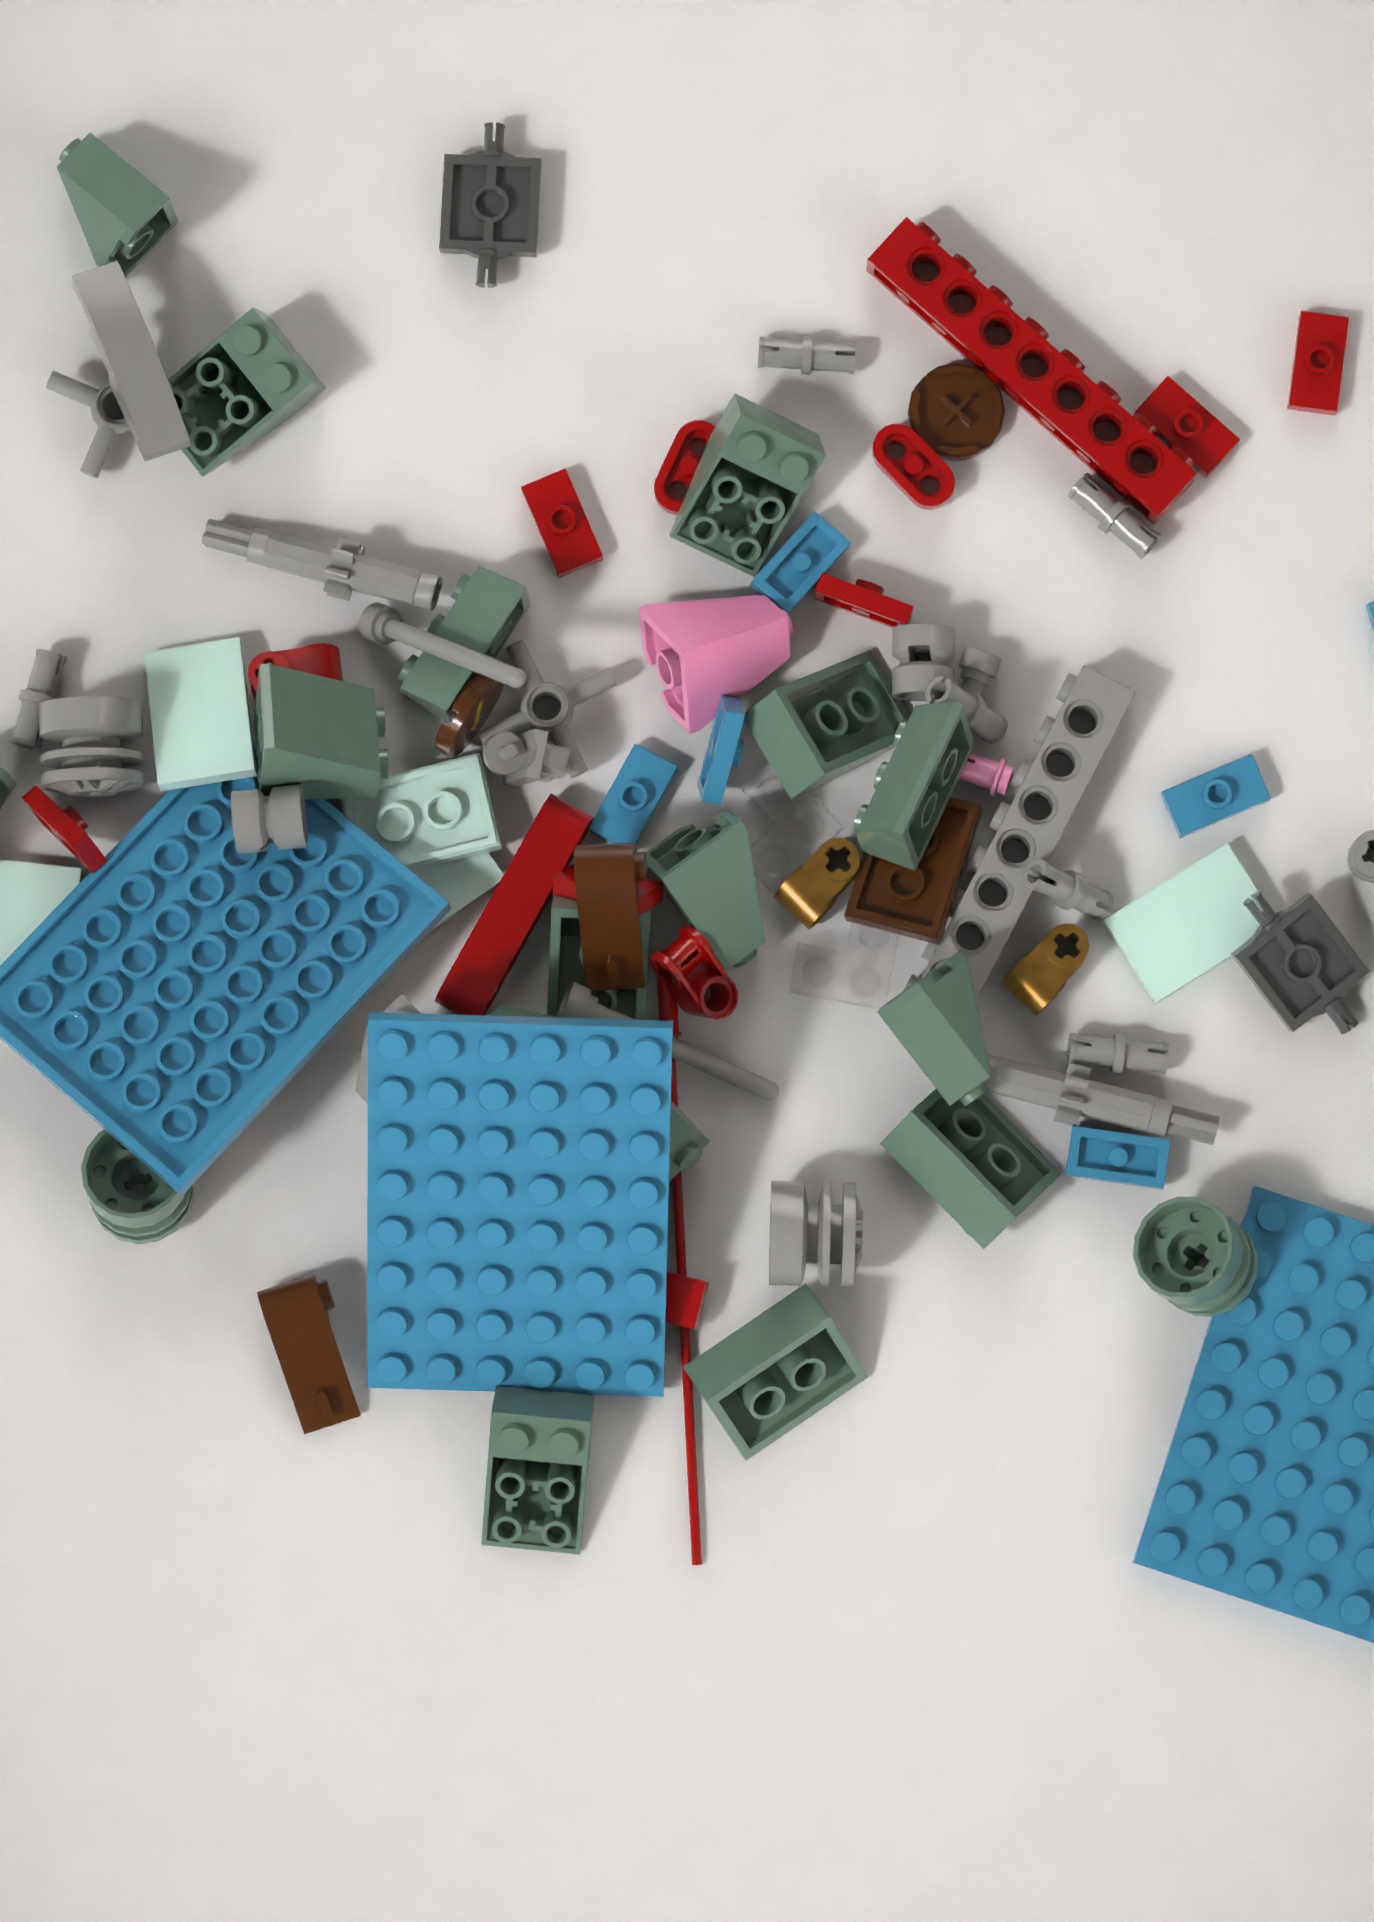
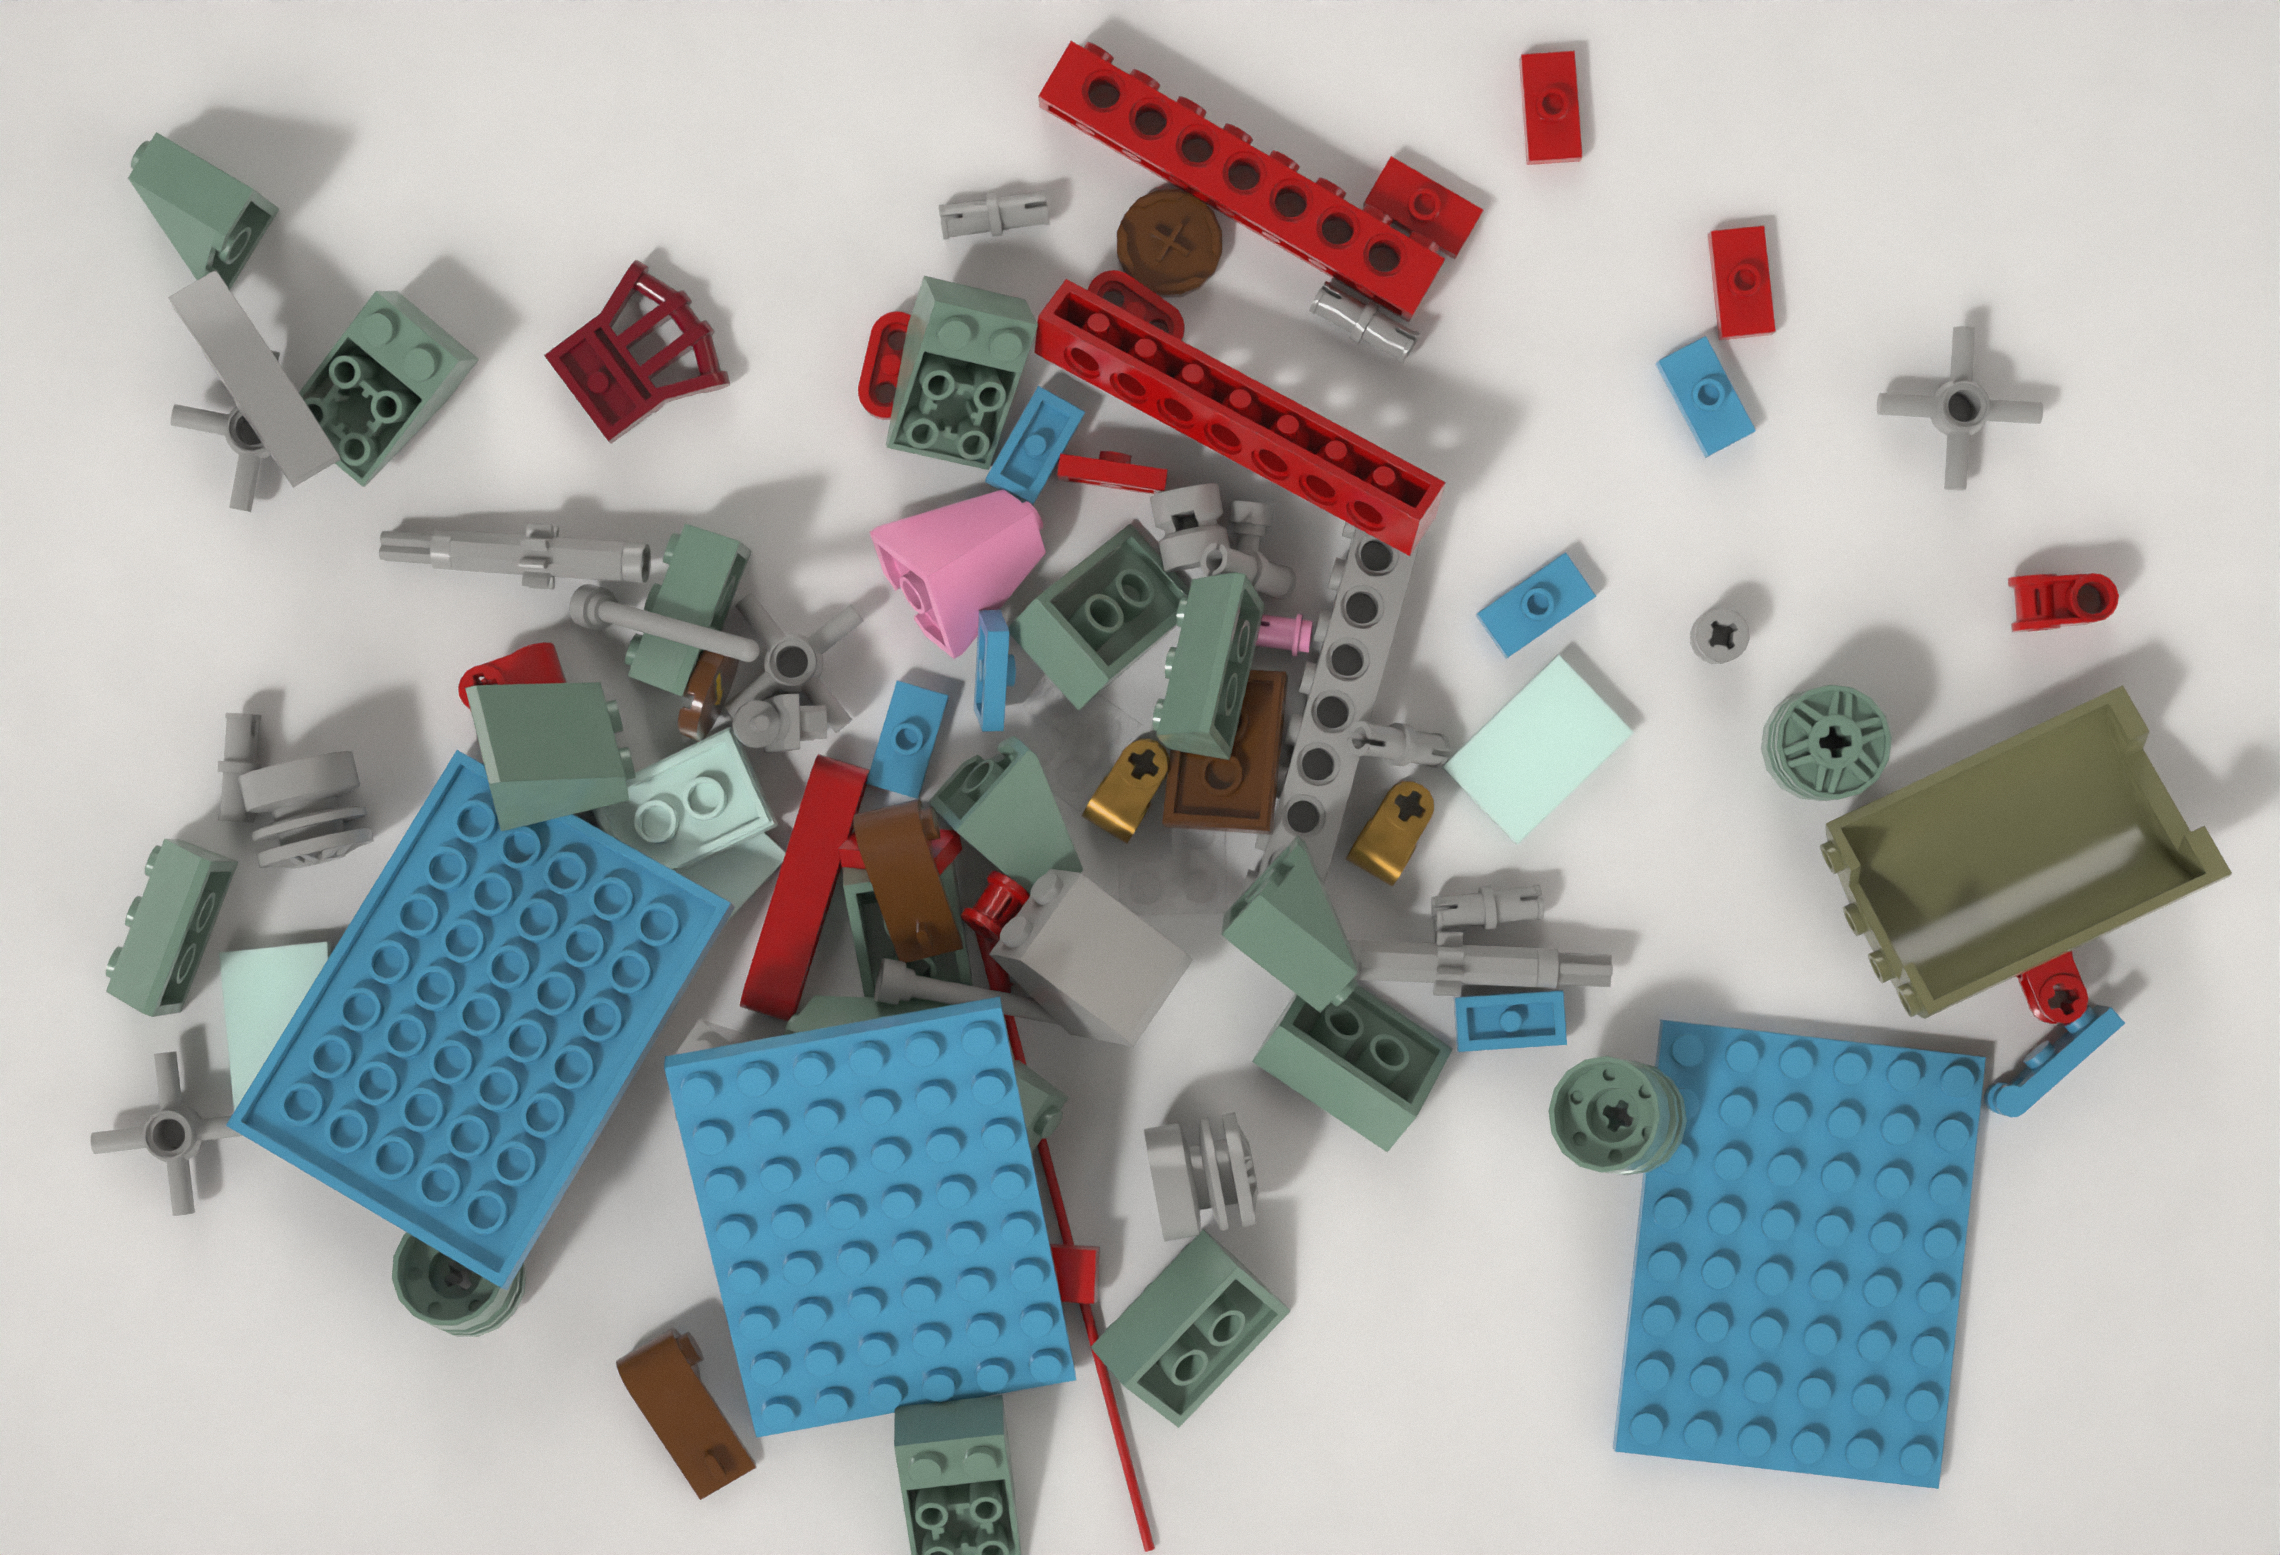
camera: 15 degrees left, 5 degrees up
(66, 827) = (298, 904): red plate -> none
(200, 714) = (418, 748): light aqua tile -> none
(269, 819) = (523, 851): light grey wheel -> none
(436, 425) = (607, 376): none -> dark red plate
(490, 205) = (614, 120): dark grey plate -> none
(562, 523) = (767, 454): red plate -> none
(754, 1017) = (1089, 959): none -> light grey slope
(985, 572) = (1238, 417): none -> red brick
(1300, 962) = (1664, 769): dark grey plate -> none

